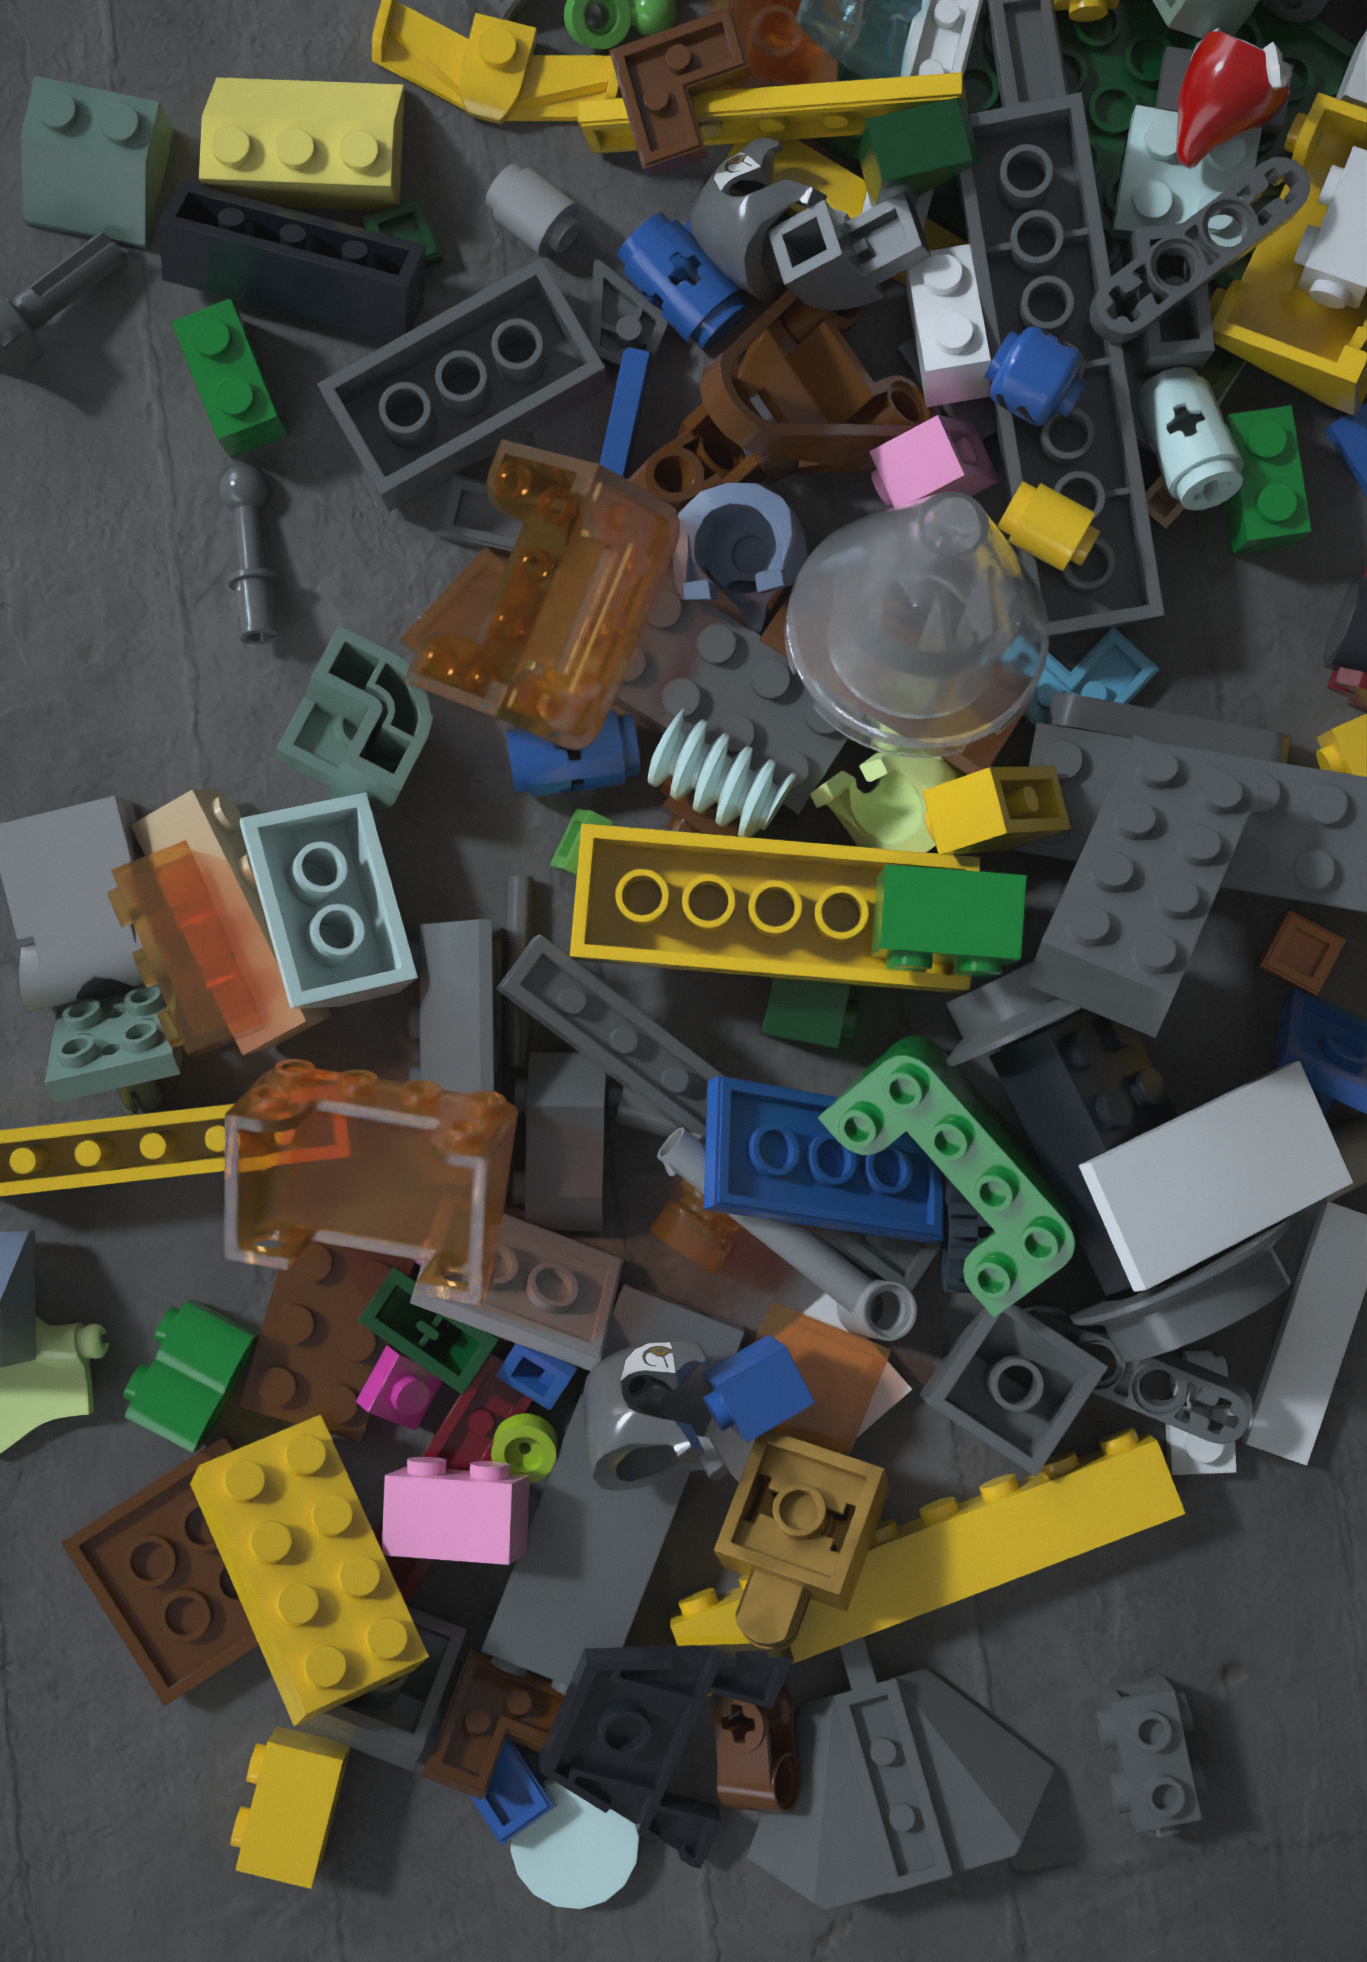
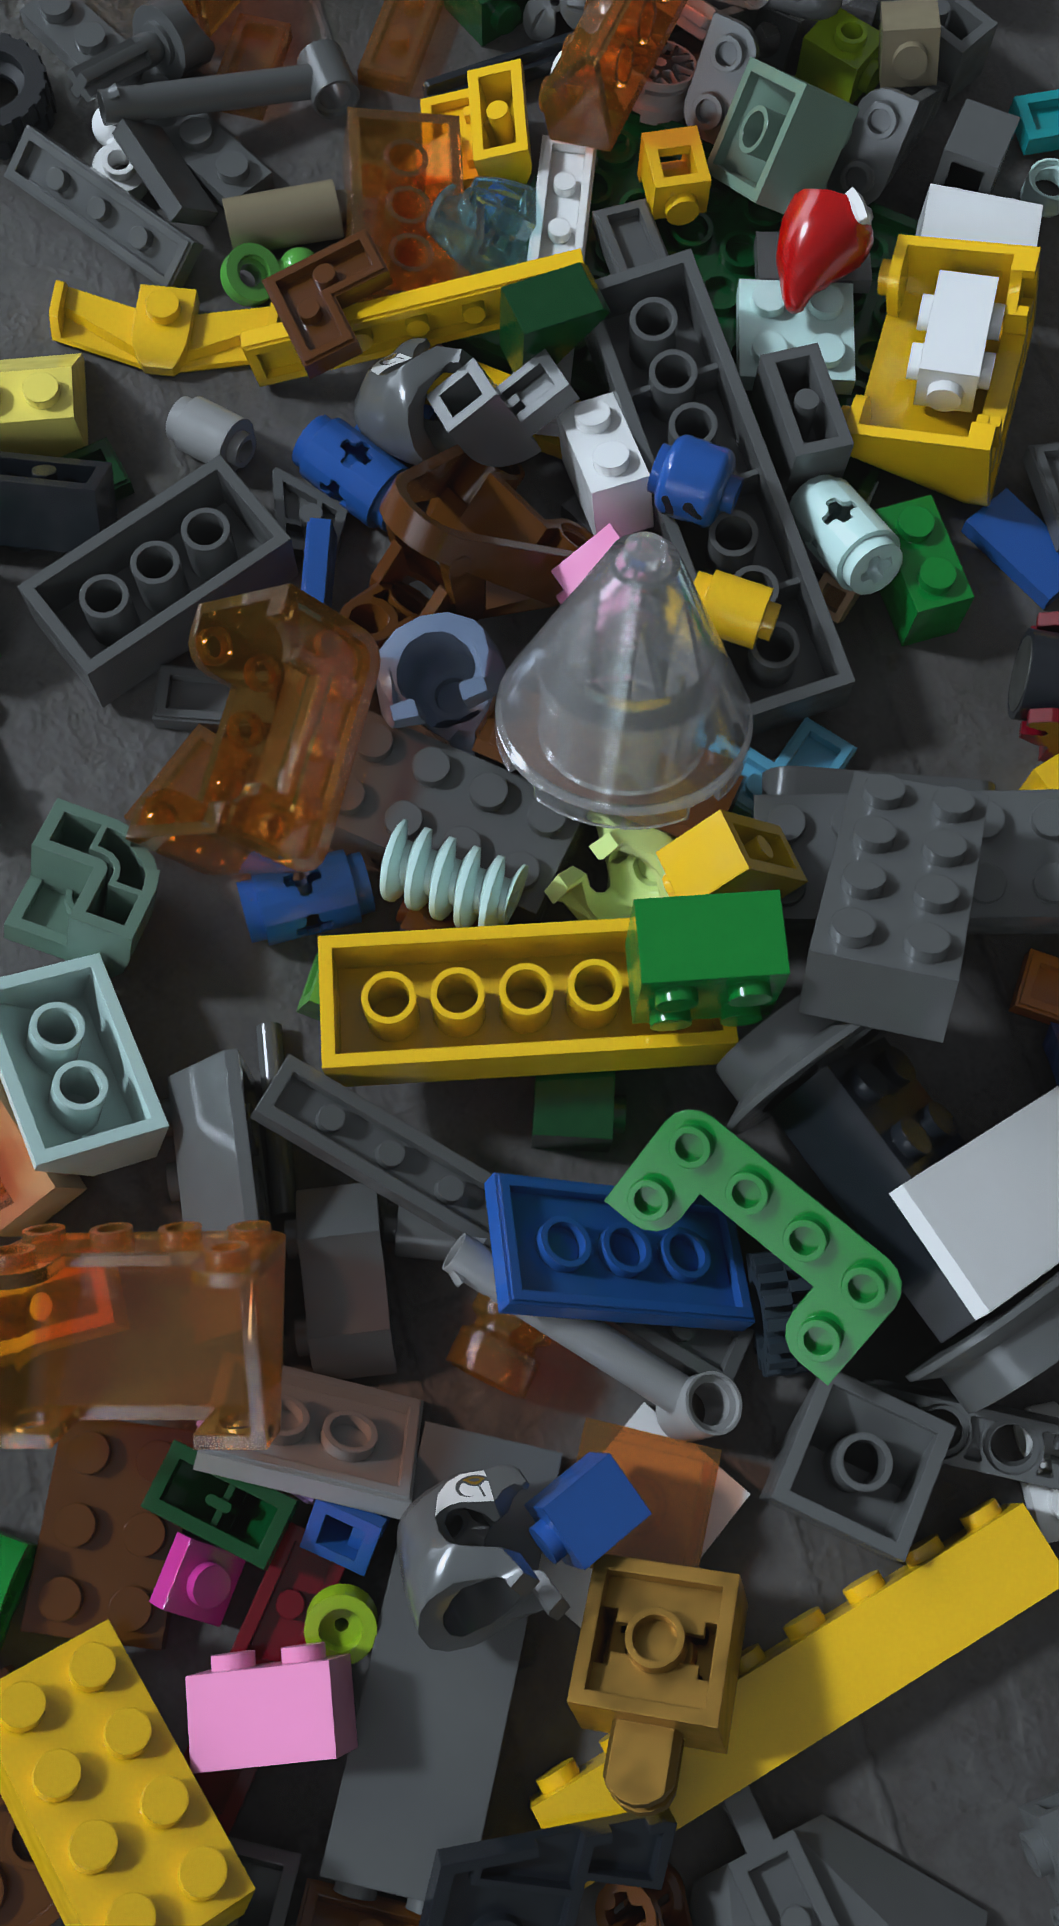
camera: 15 degrees left, 15 degrees down
(1199, 250) = (819, 357): dark grey beam -> none

